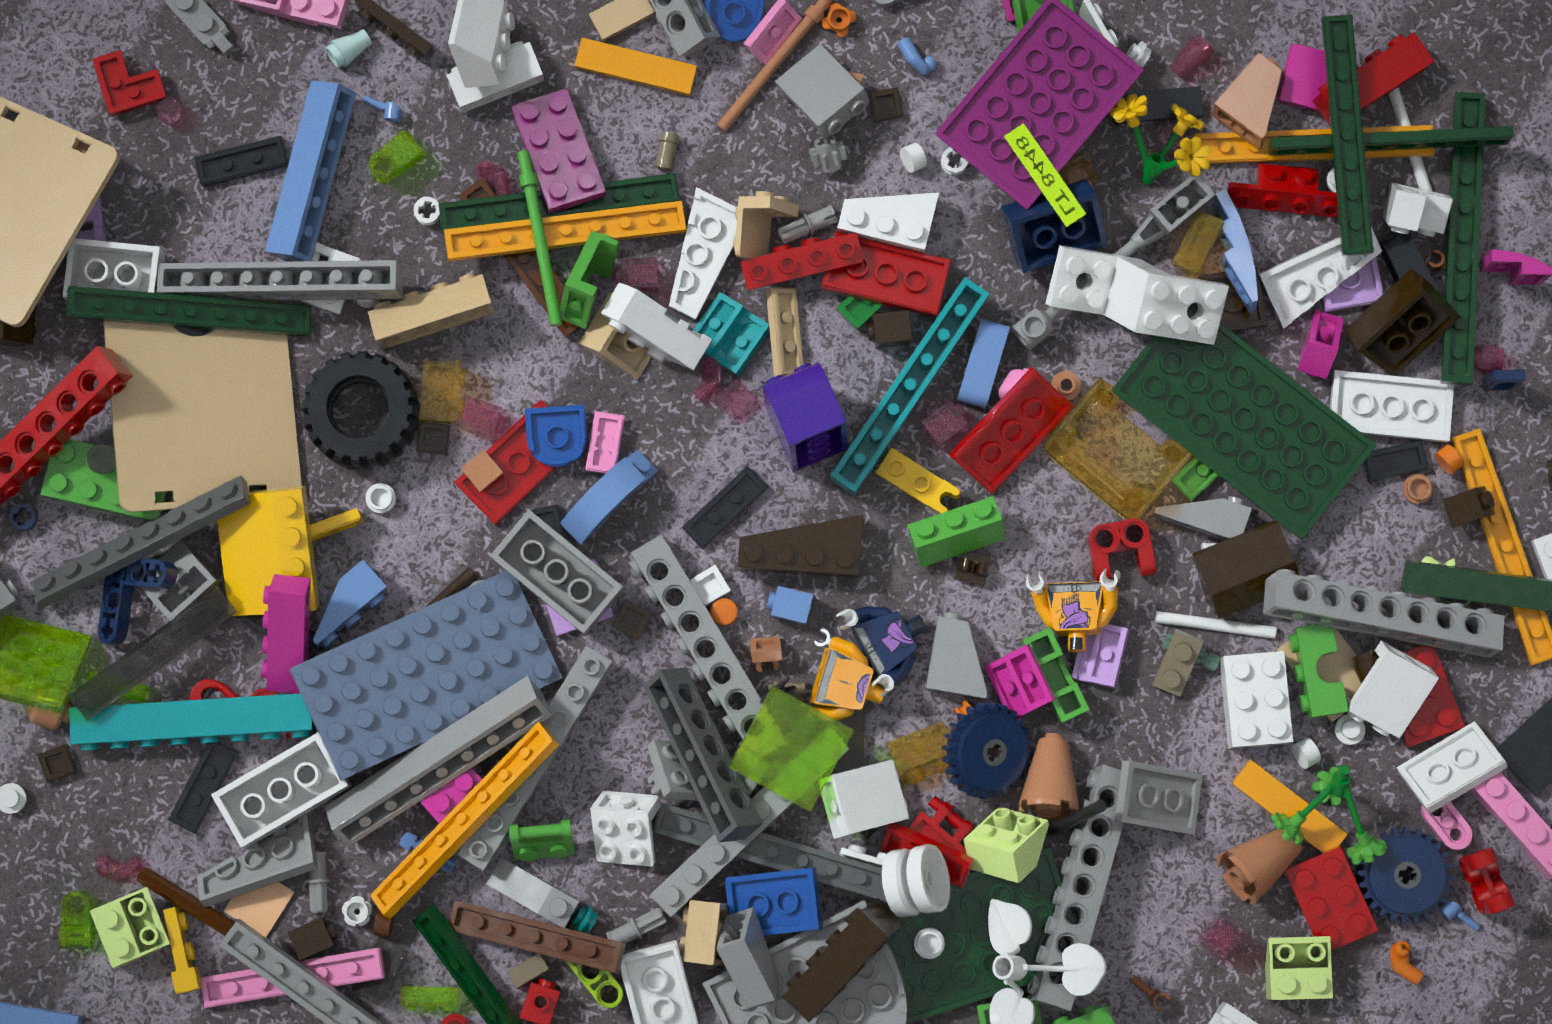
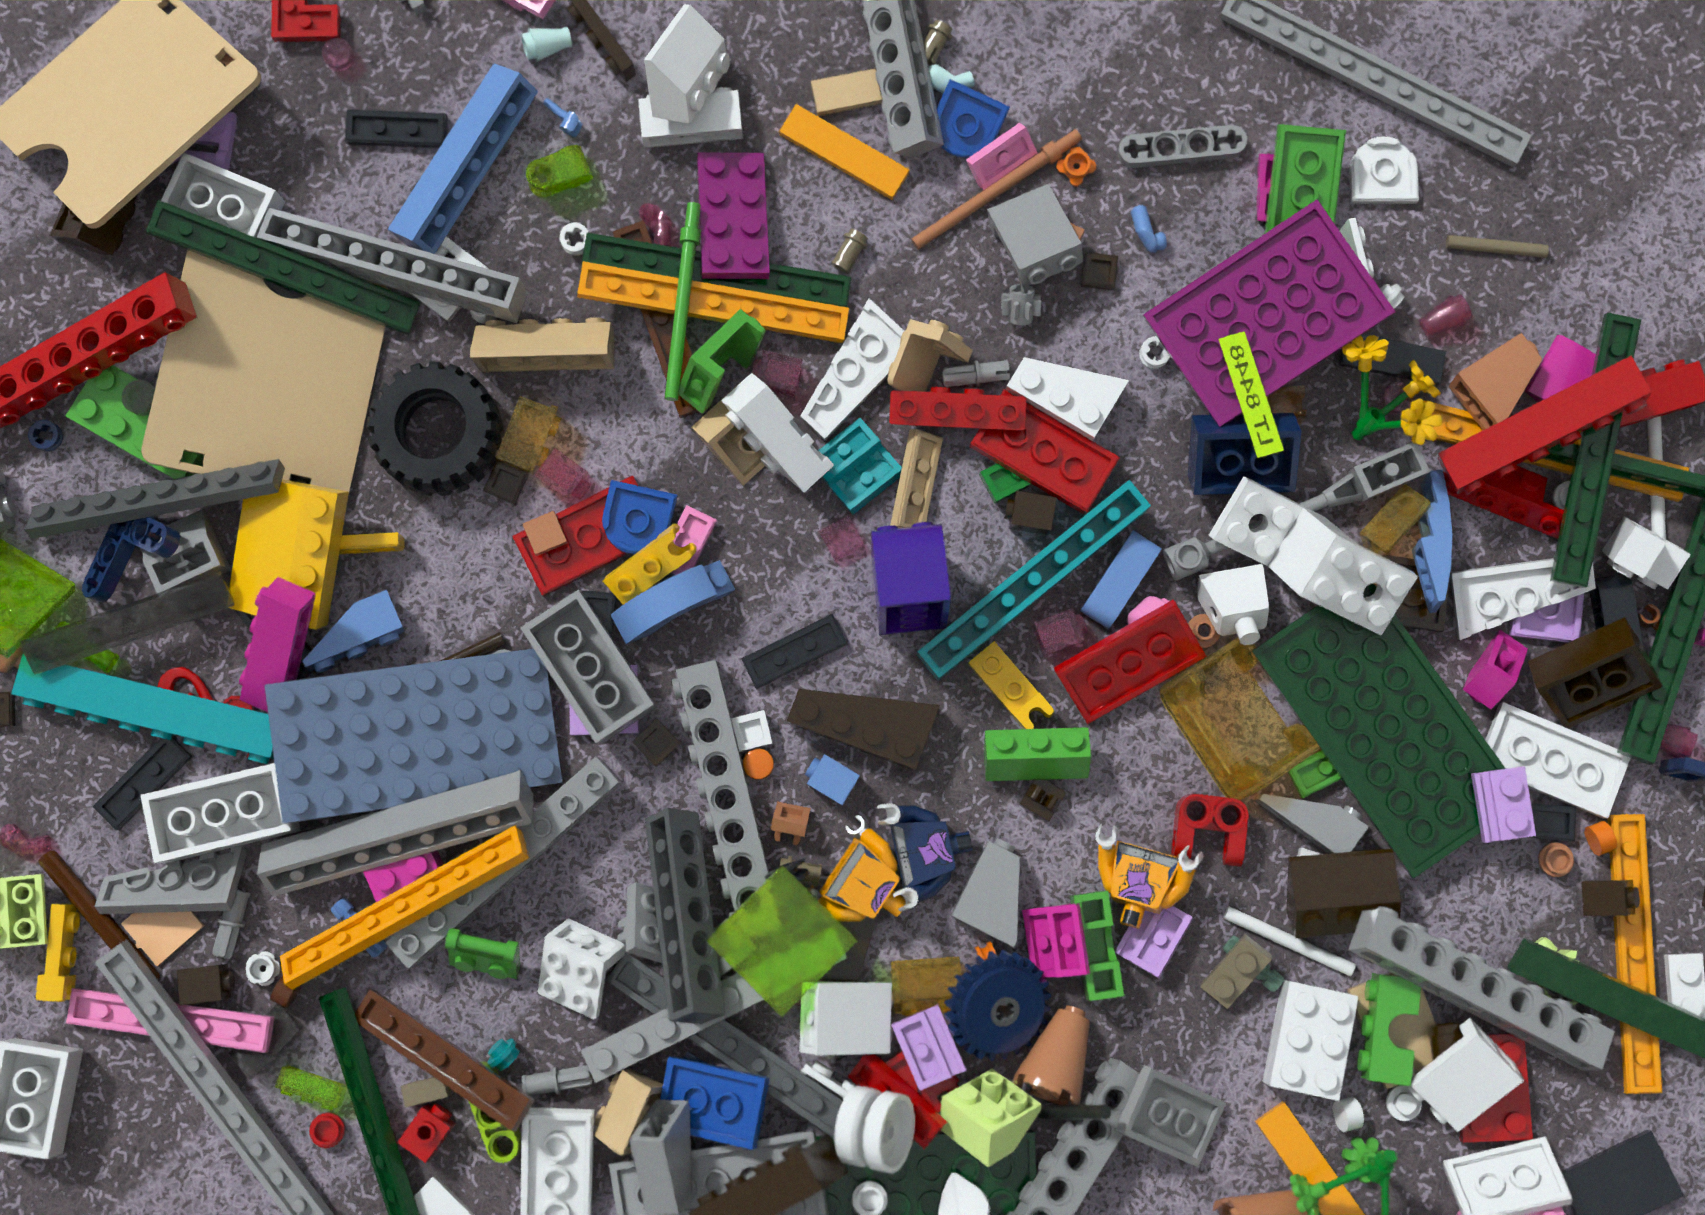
camera: 20 degrees right, 0 degrees up
(380, 498) = (429, 529): white plate -> none
(533, 893) = (458, 1009): light grey slope -> none
(579, 472) = (648, 565): none -> yellow plate
(712, 379) = (822, 510): clear pink arm -> none
(913, 157) = (1112, 335): white piece -> none
(940, 802) = (928, 1047): none -> lavender plate
(1085, 352) = (1236, 601): none -> white torso
(1296, 128) = (1545, 425): none -> red brick
(1357, 455) = (1503, 804): none -> lavender plate

